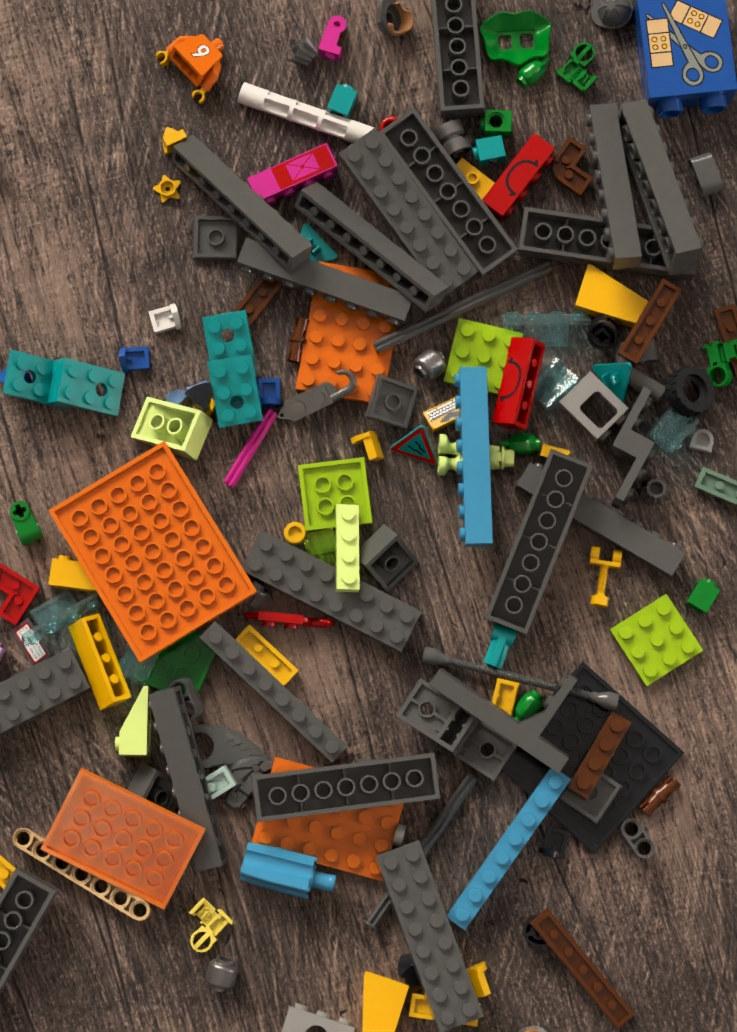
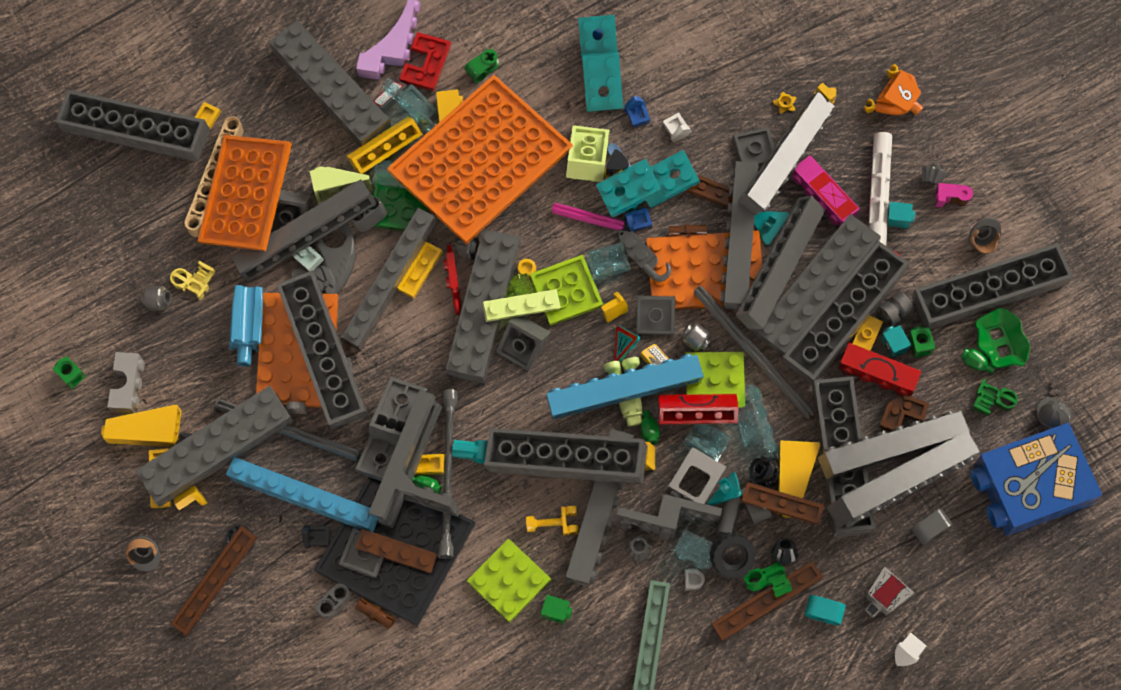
camera: 80 degrees right, 10 degrees down
(313, 439) = (607, 261): none -> clear light blue bracket
(697, 336) = (784, 551): none -> black piece

